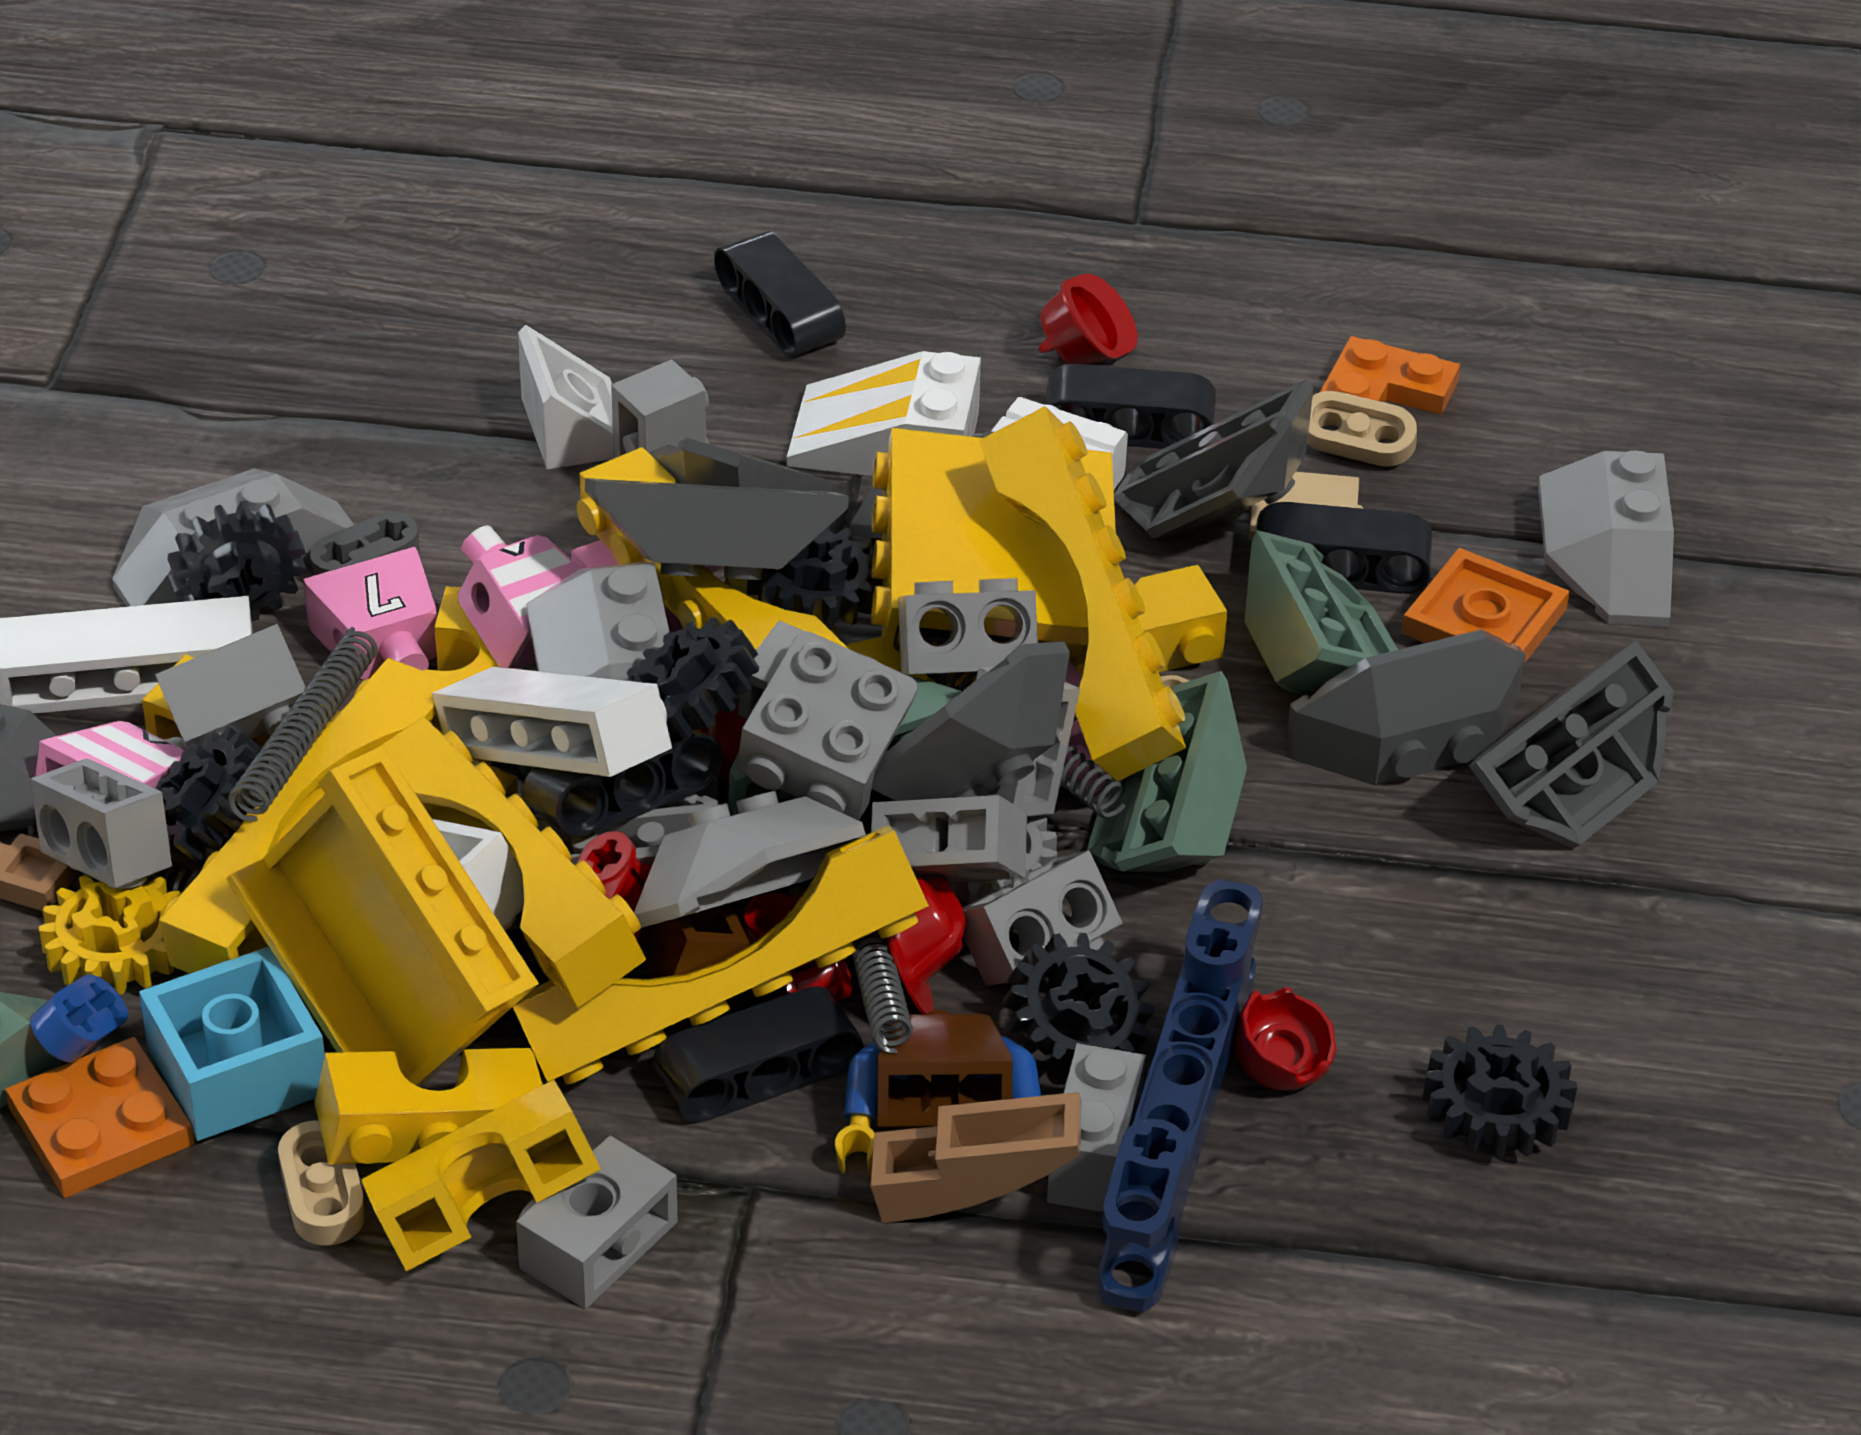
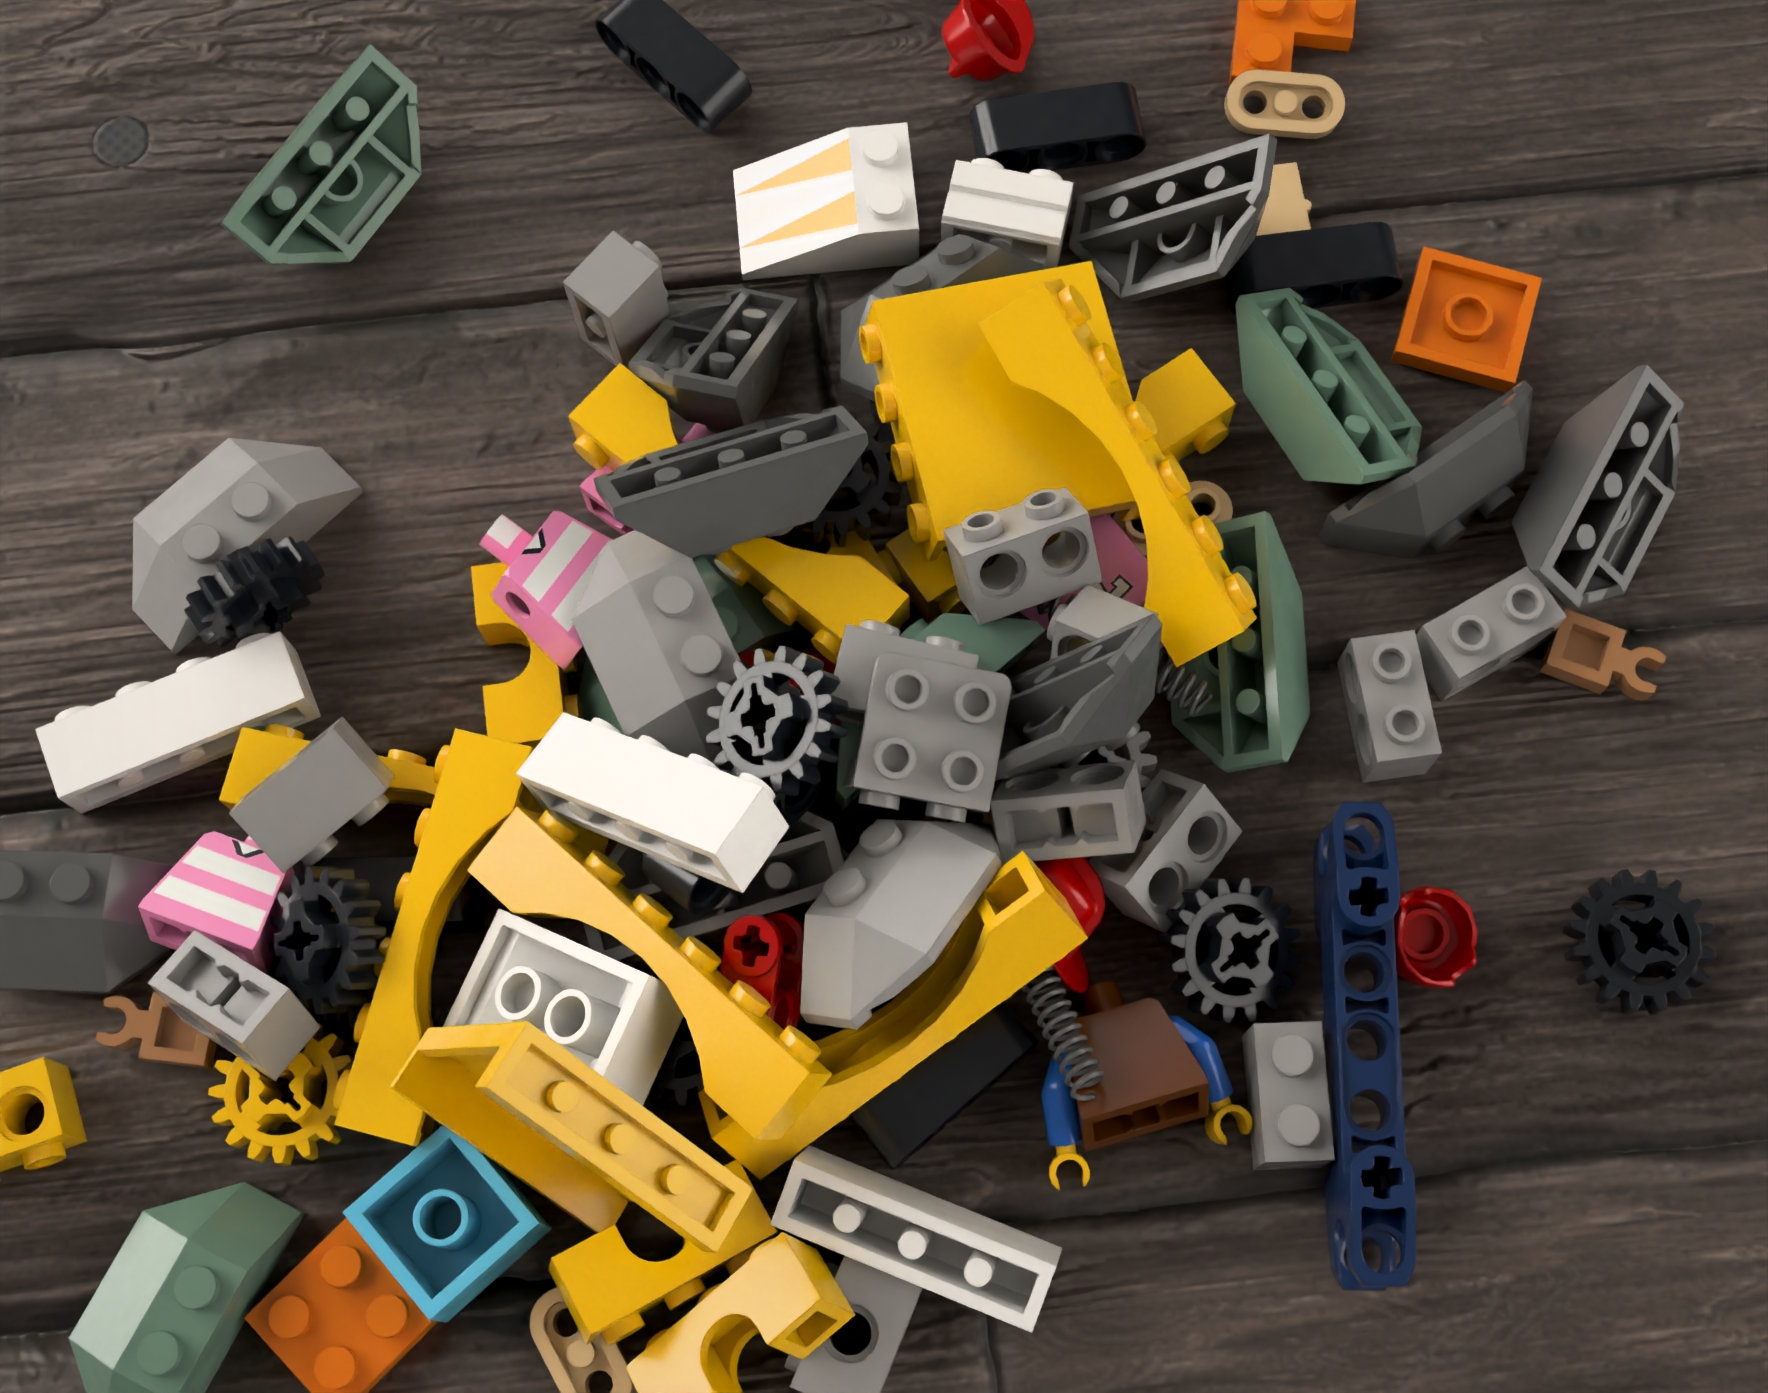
camera: 10 degrees left, 30 degrees up
(79, 1018) = (277, 1222): blue beam -> none
(288, 751) = (392, 959): dark grey piece -> none
(364, 541) = (370, 512): dark grey beam -> none
(381, 598) = (412, 605): bright pink torso -> none
(431, 303) = (335, 171): none -> sand green wedge
(564, 403) = (512, 263): white slope -> none
(715, 1157) = (917, 1237): none -> white brick
(973, 1154) = (1197, 1179): medium nougat slope -> none
(1304, 866) = (1388, 706): none -> light grey brick
(1421, 832) = (1487, 632): none -> light grey brick
(1530, 874) = (1591, 655): none -> medium nougat plate
(1612, 534) = (1560, 179): light grey wedge -> none

